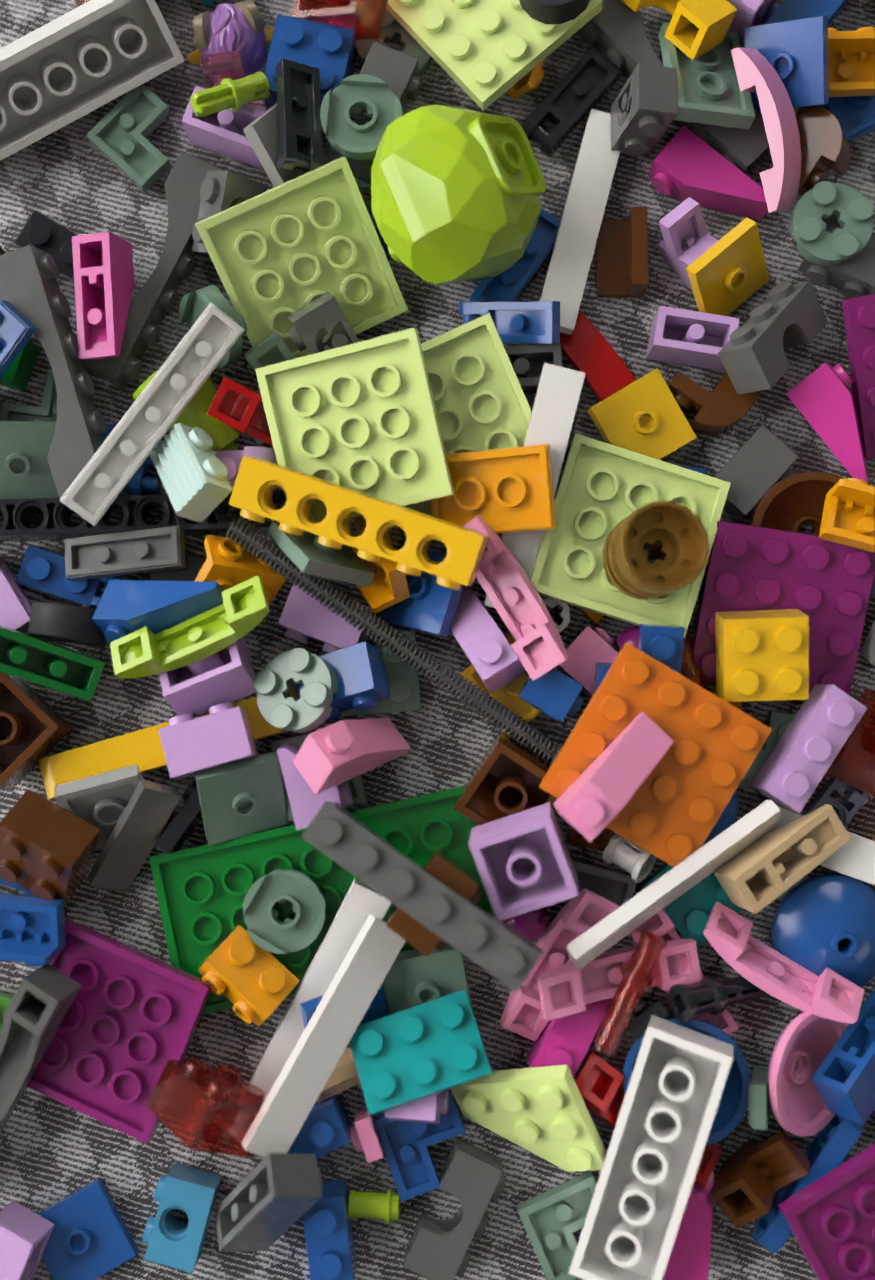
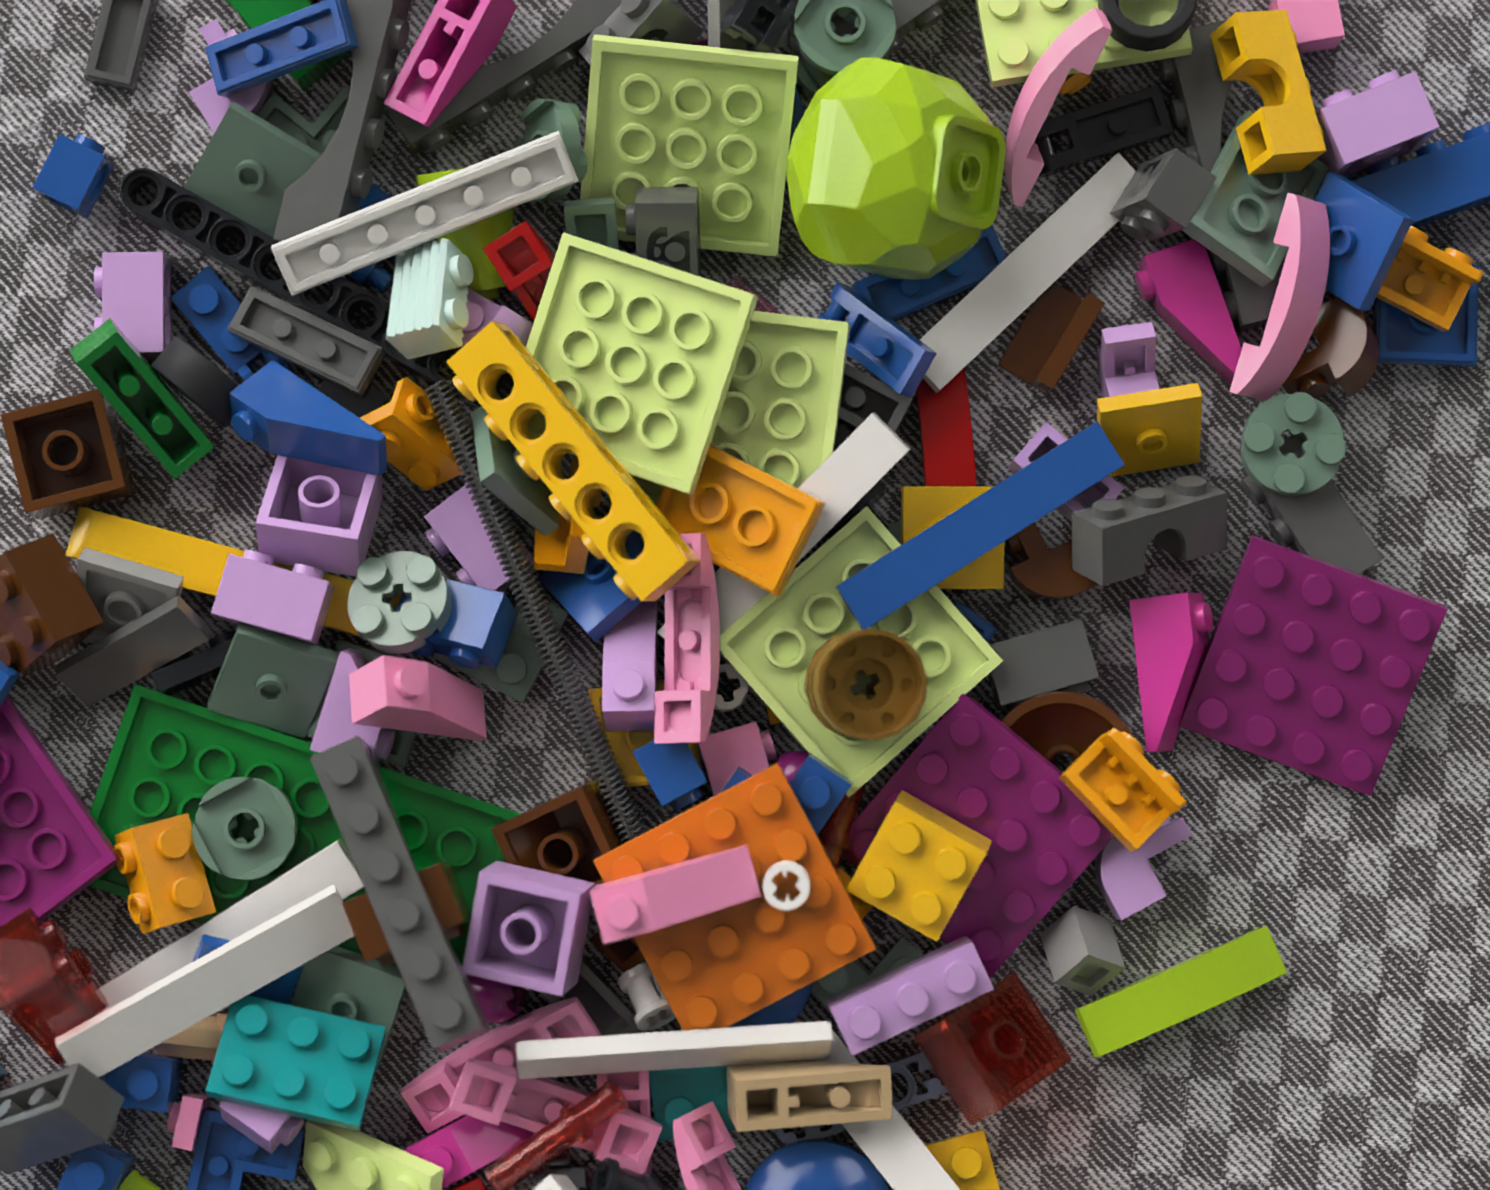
camera: 25 degrees right, 0 degrees up
(192, 640) = (325, 480): lime slope -> none
(528, 36) = (1074, 48): none -> bright pink slope
(660, 400) = (979, 526): none -> blue tile
(696, 713) = (770, 885): none -> white bush

